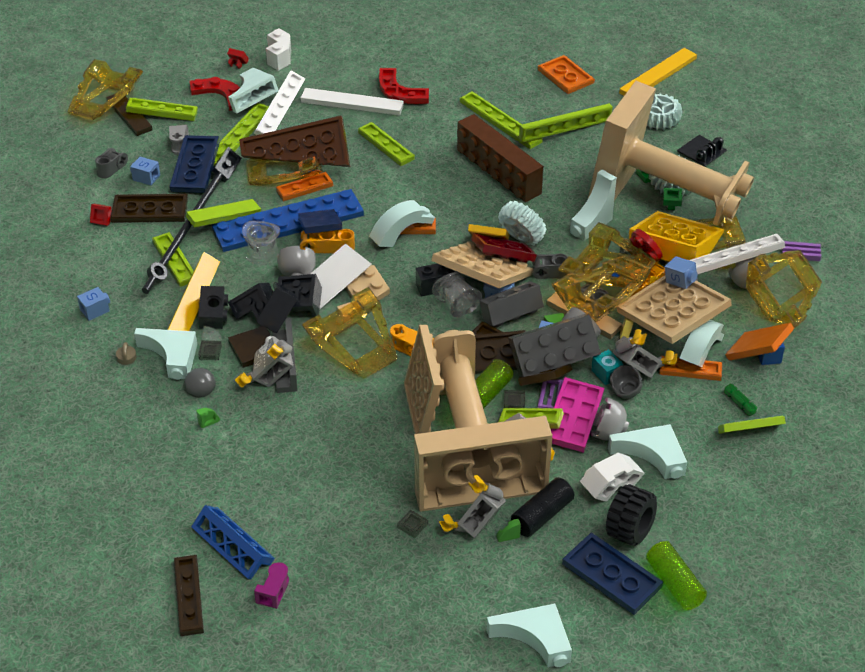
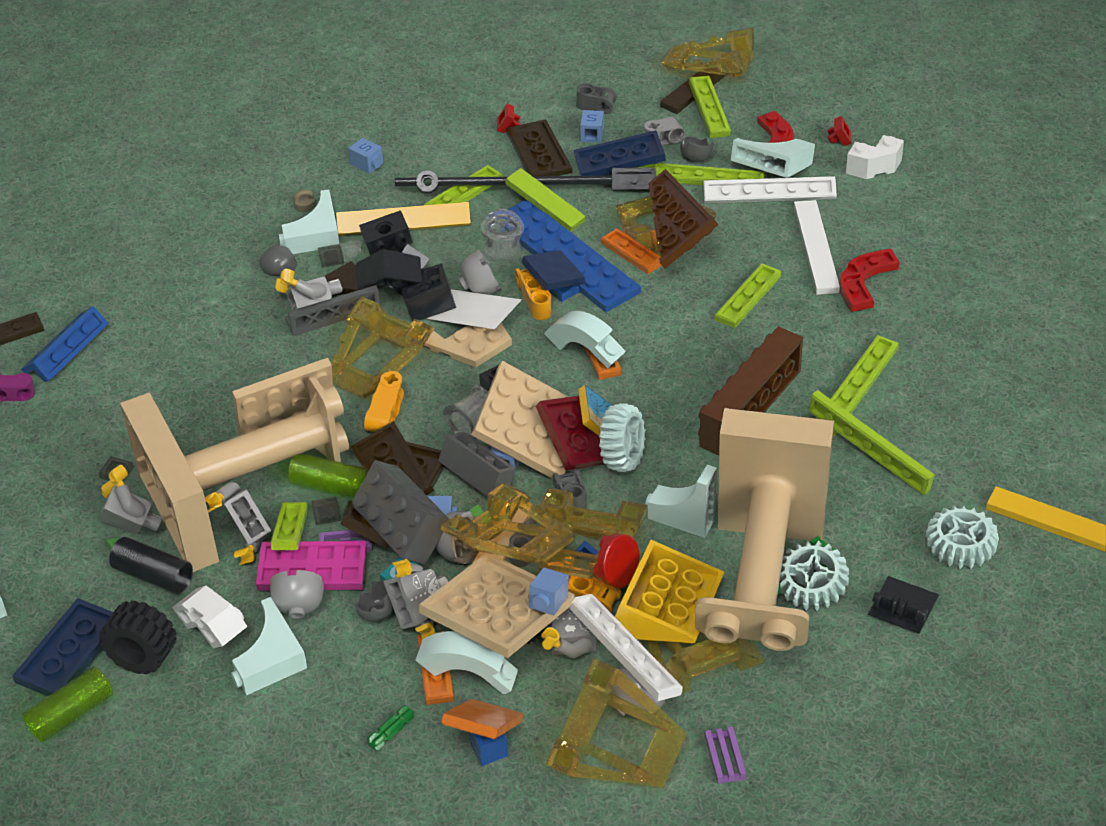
camera: 75 degrees right, 0 degrees up
(206, 417) = (227, 278): bright green tile -> none
(212, 126) = (696, 149): none -> dark grey hair
(566, 74) = (1000, 427): orange tile -> none
(751, 424) = (339, 742): lime tile -> none

